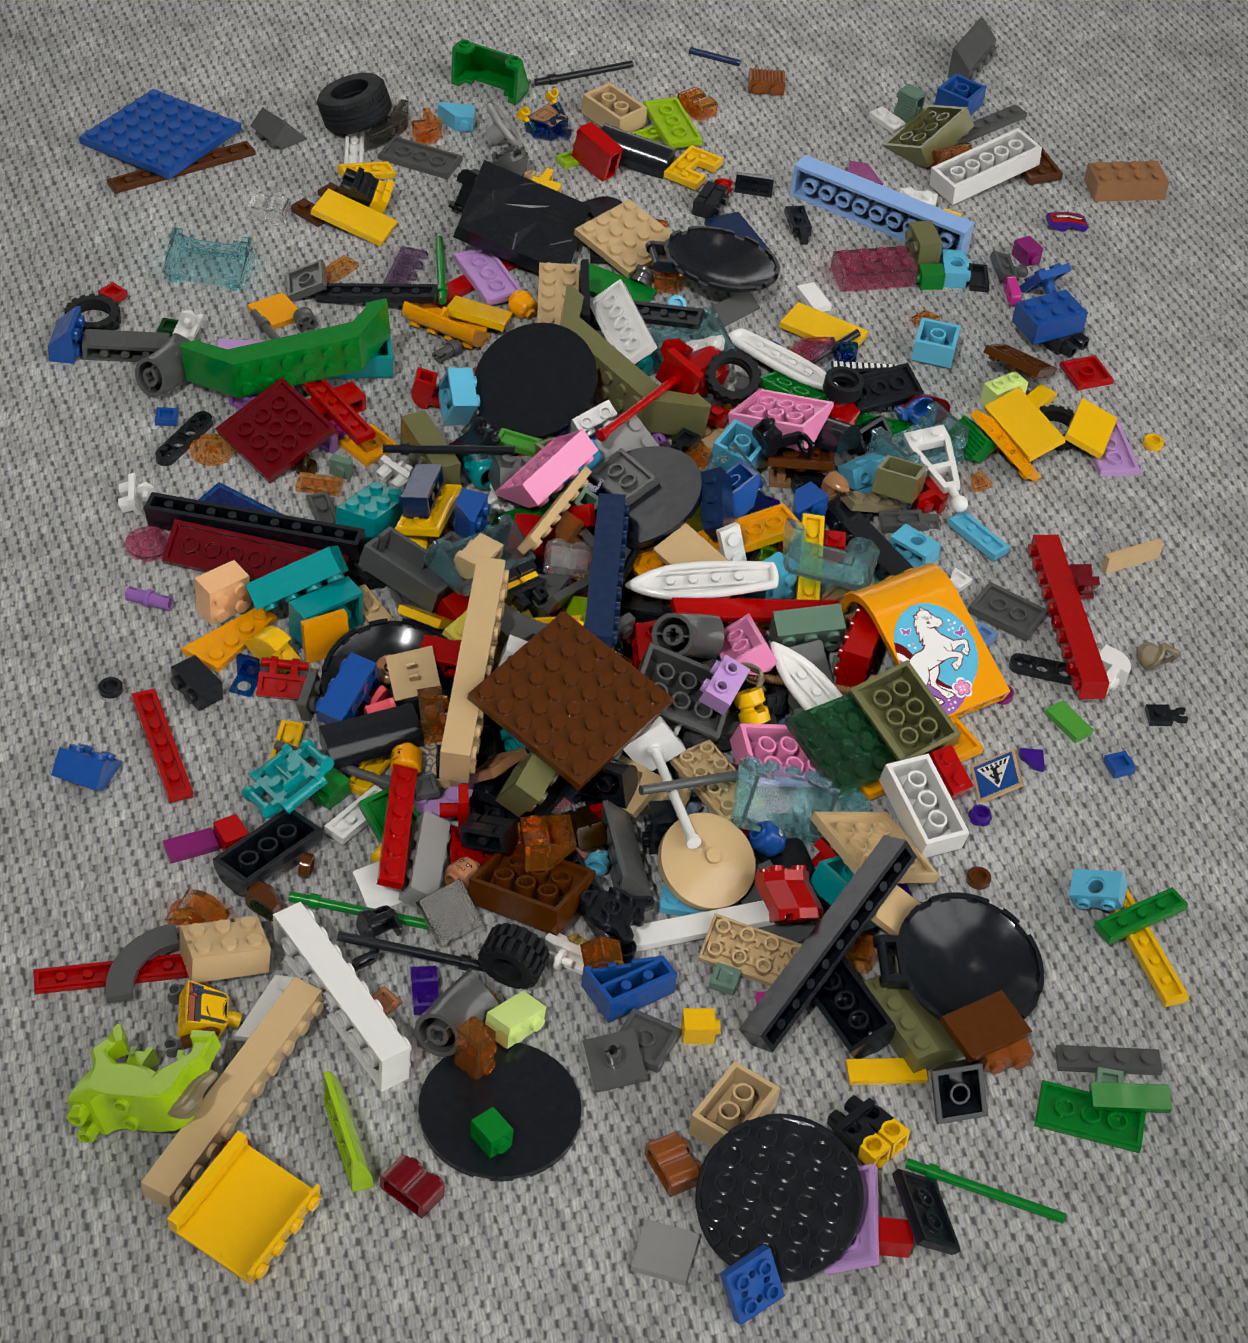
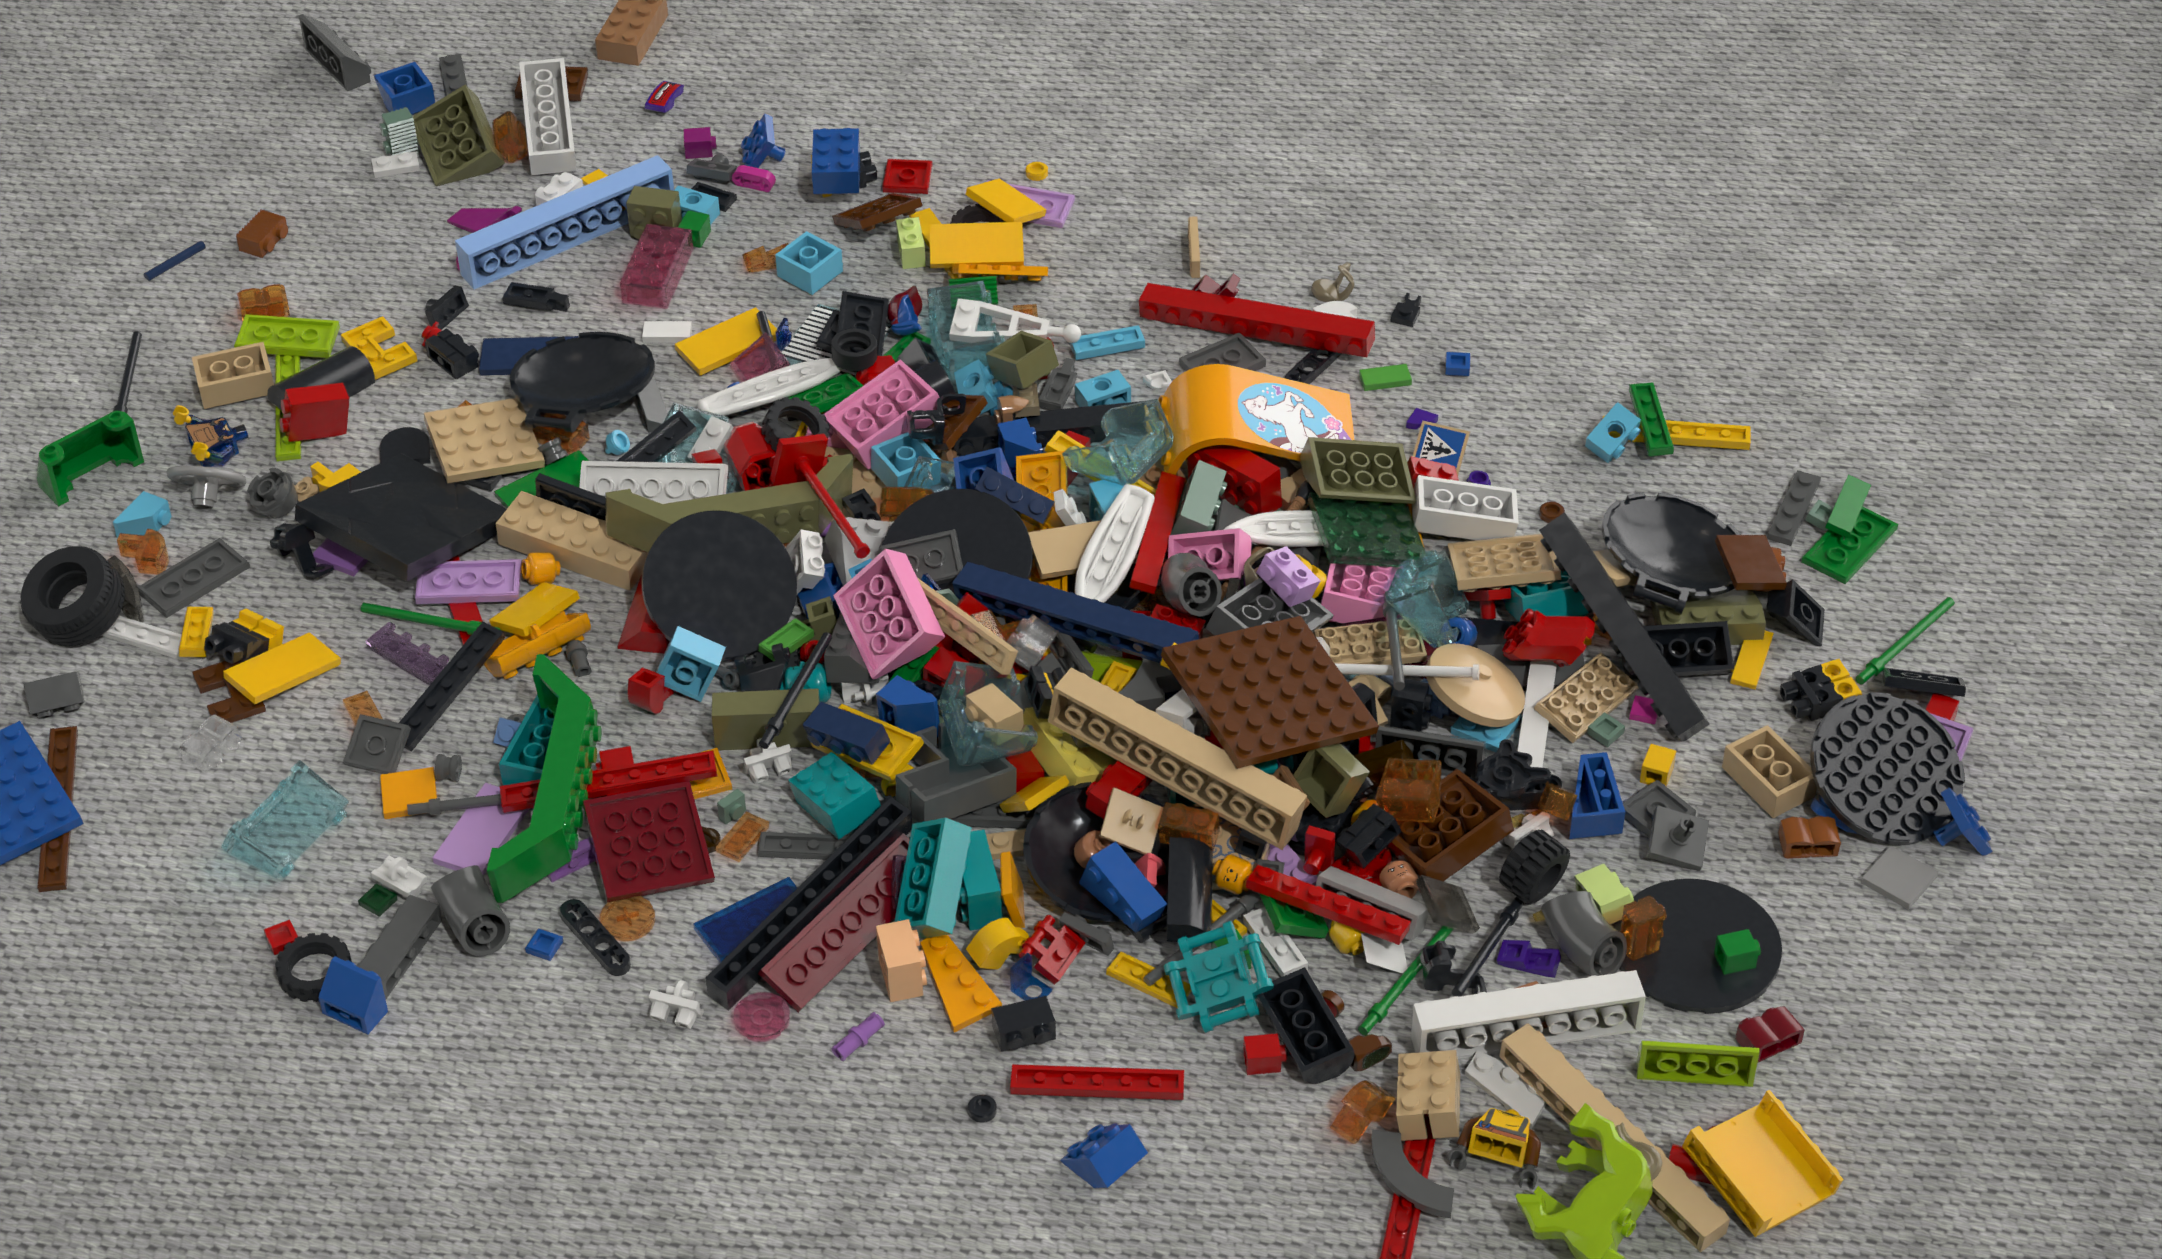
camera: 60 degrees left, 0 degrees up
(191, 845) = (1254, 1096): magenta tile -> none

